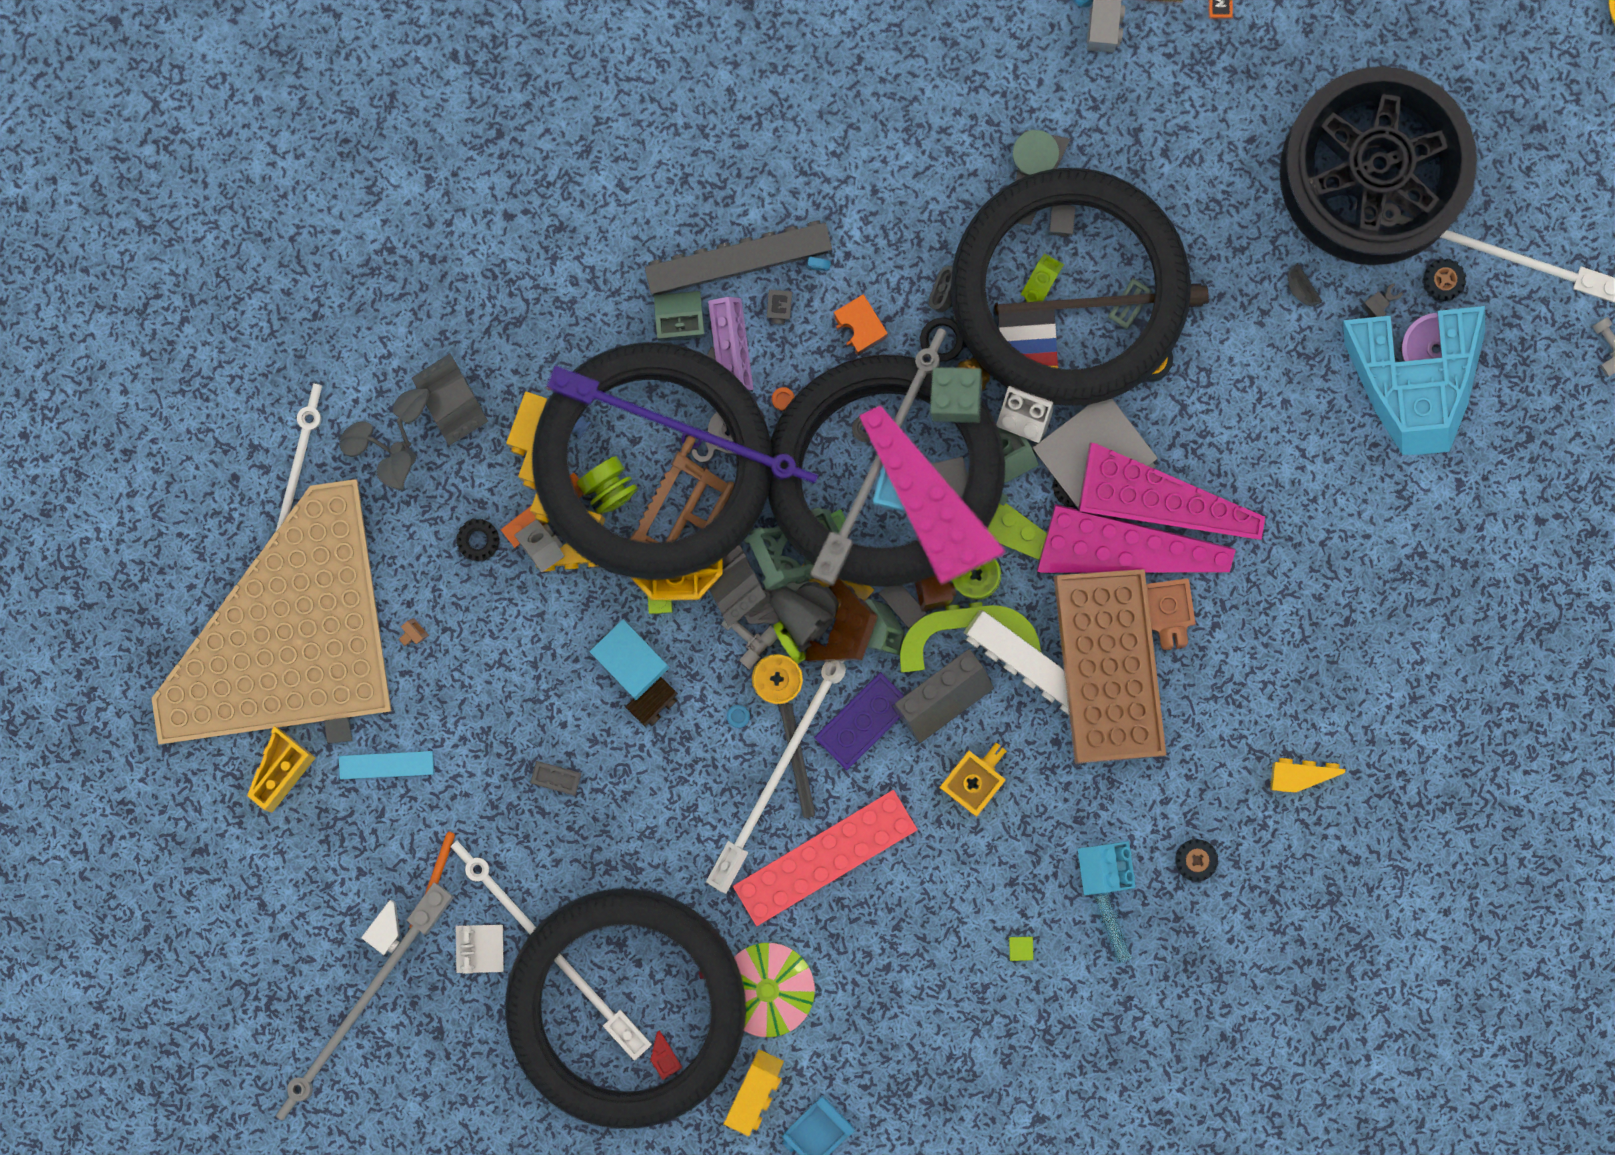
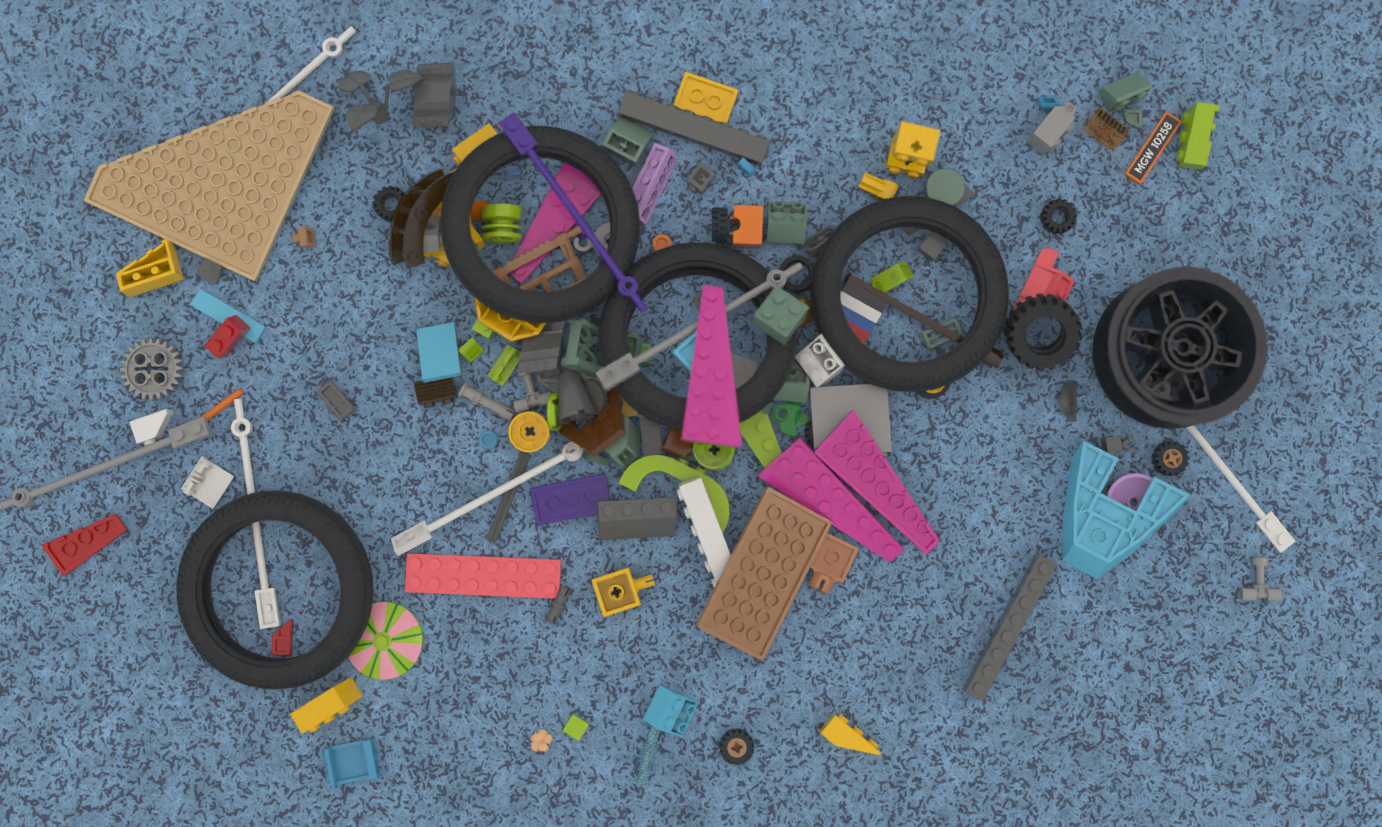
camera: 30 degrees right, 0 degrees up
(333, 852) = (152, 351): none -> light grey gear
(392, 1098) = (79, 546): none -> red wing
(402, 785) = (227, 336): none -> red brick
(515, 506) = (412, 216): none -> dark brown fence
(655, 443) = (554, 217): none -> dark pink wing
(660, 635) = (471, 349): none -> lime tile
(700, 680) = (478, 398): none -> light grey pin
(705, 628) = (505, 365): none -> lime hinge
(729, 219) = (705, 98): none -> yellow tile
(830, 341) = (719, 224): none -> black wheel
(867, 661) = (598, 459): none -> sand green tile
(896, 293) = (786, 222): none -> sand green slope
(921, 836) = (558, 604): none -> dark grey pin
(967, 196) = (880, 188): none -> yellow piece
(977, 139) = (912, 145): none -> yellow plate
(995, 985) = (540, 740): none -> light nougat plant
(1034, 489) = (792, 417): none -> green plate
(1170, 92) = (1070, 215): none -> black tyre
(1202, 187) = (1046, 279): none -> coral plate
(1254, 253) = (1057, 351): none -> black tyre
(1392, 558) = (1009, 627): none -> dark grey brick

